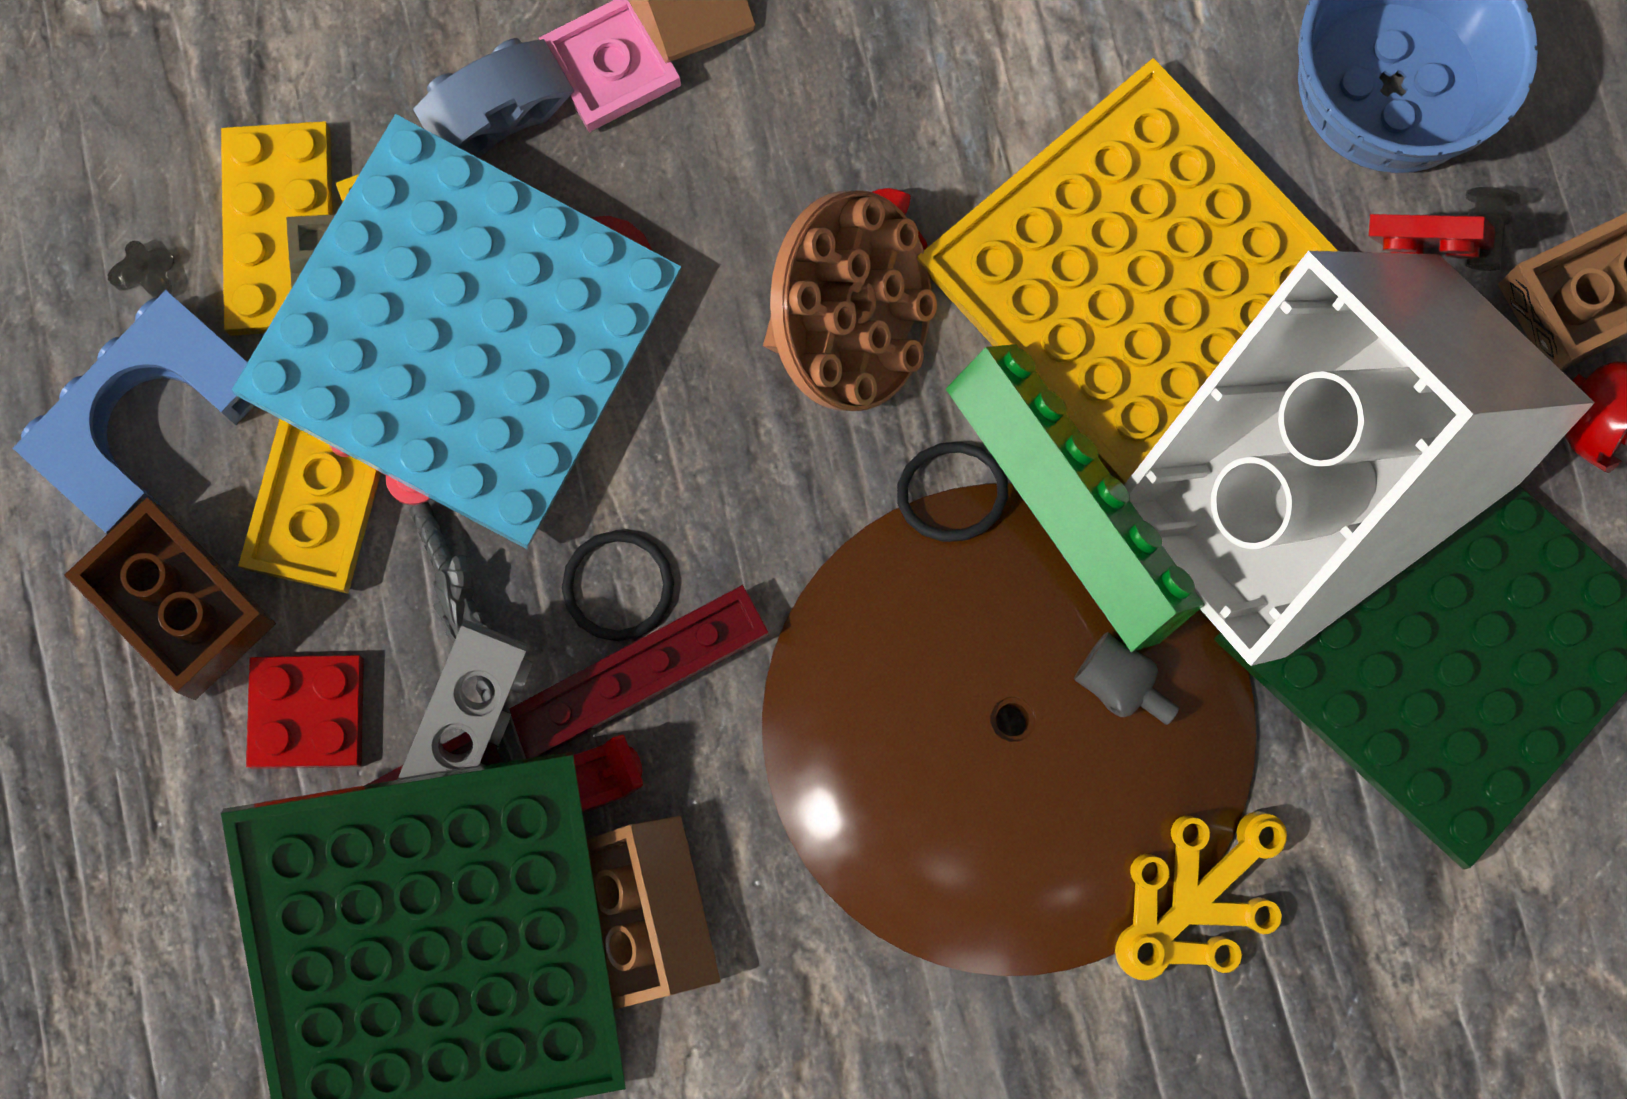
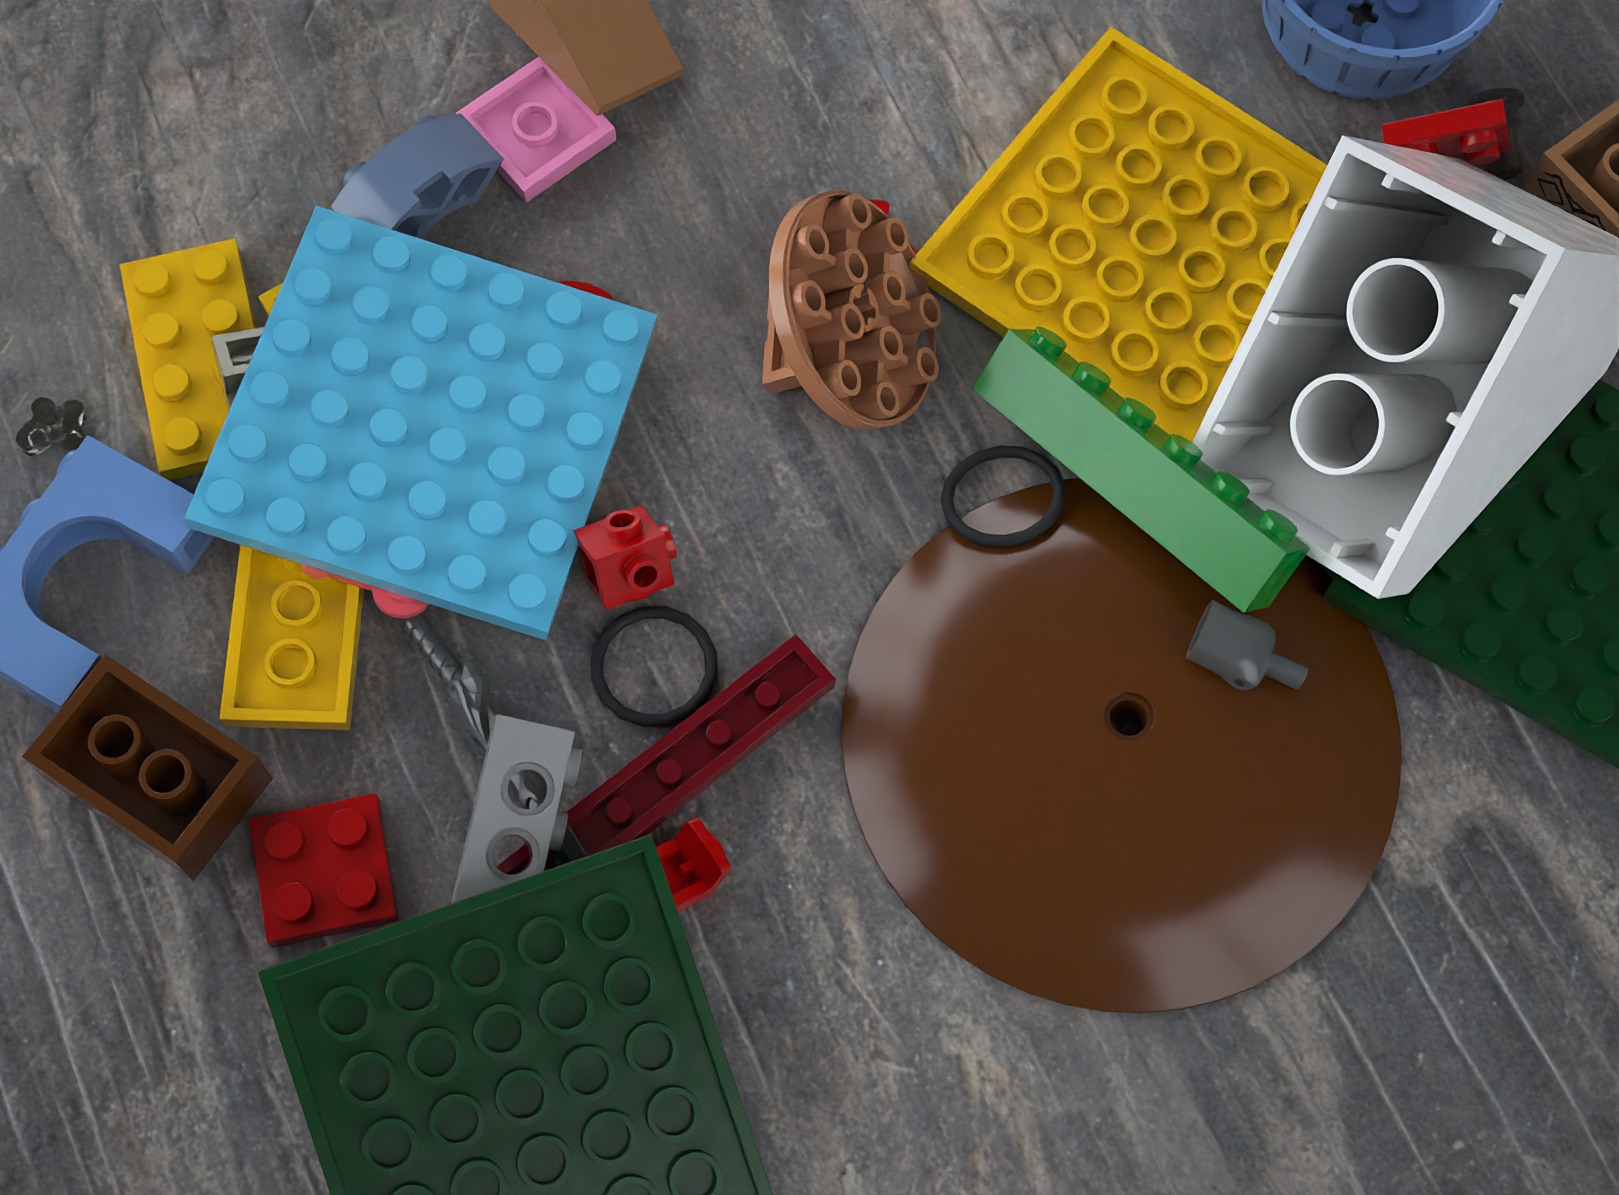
camera: 15 degrees left, 10 degrees down
(609, 487) = (626, 556): none -> red brick
(650, 912) = (772, 1012): medium nougat slope -> none
(1195, 899) = (1373, 877): yellow plant -> none

